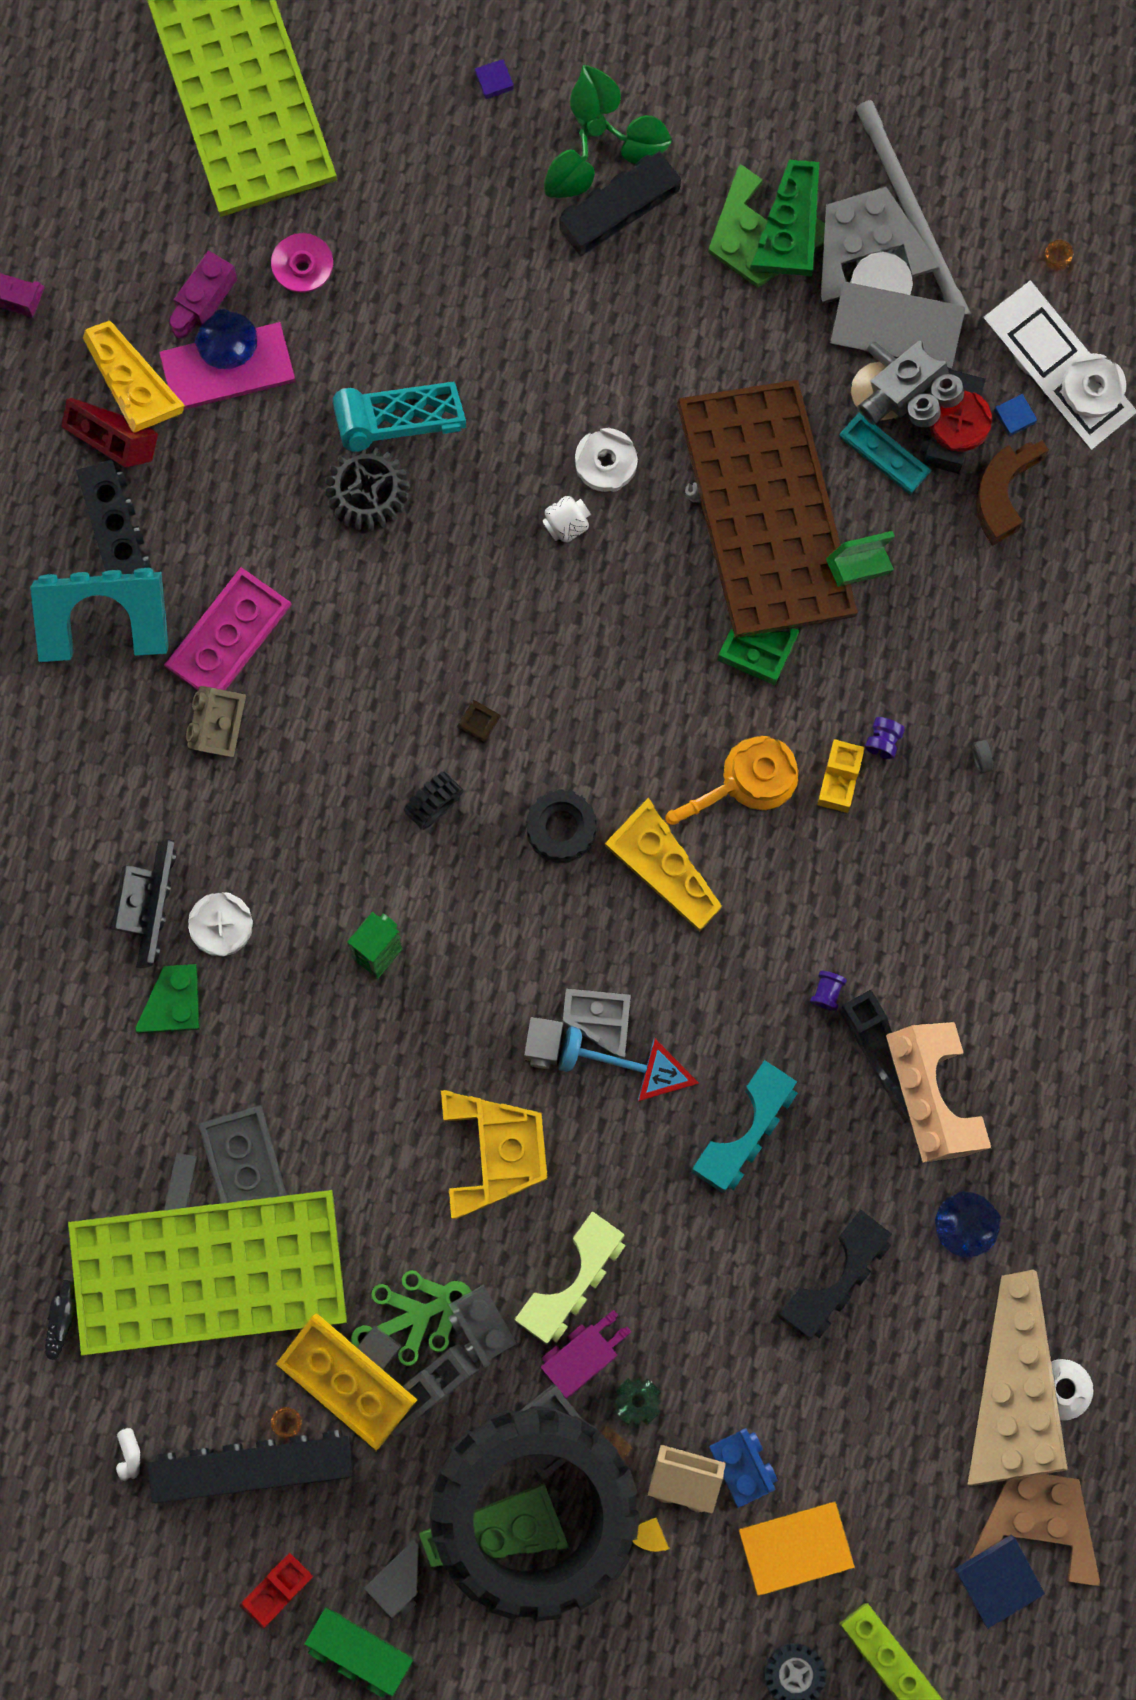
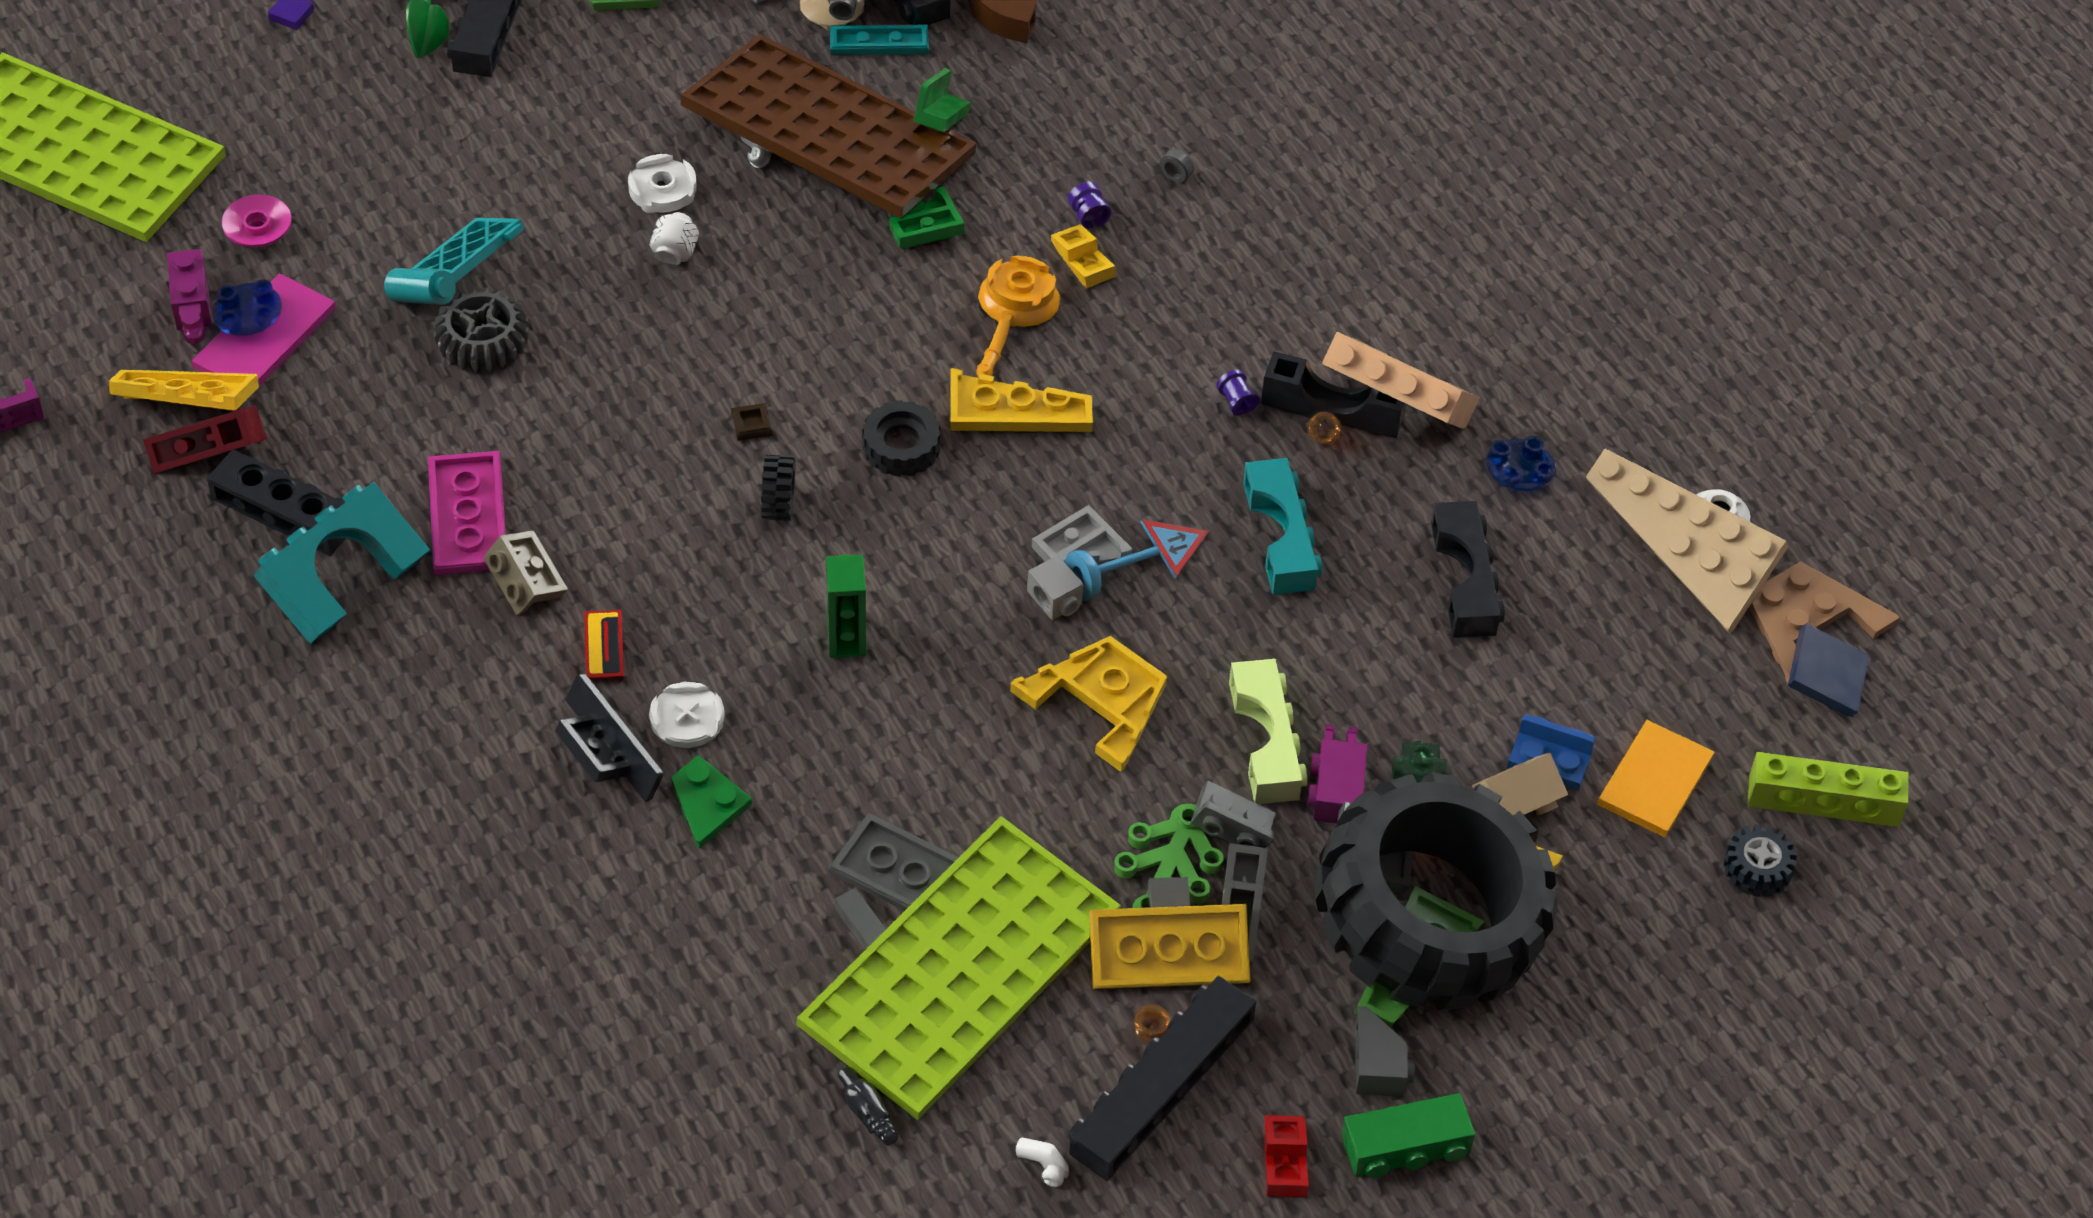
camera: 45 degrees left, 25 degrees down
(215, 823) = (604, 645): none -> slope
(867, 1072) = (1315, 422): none -> clear orange bush

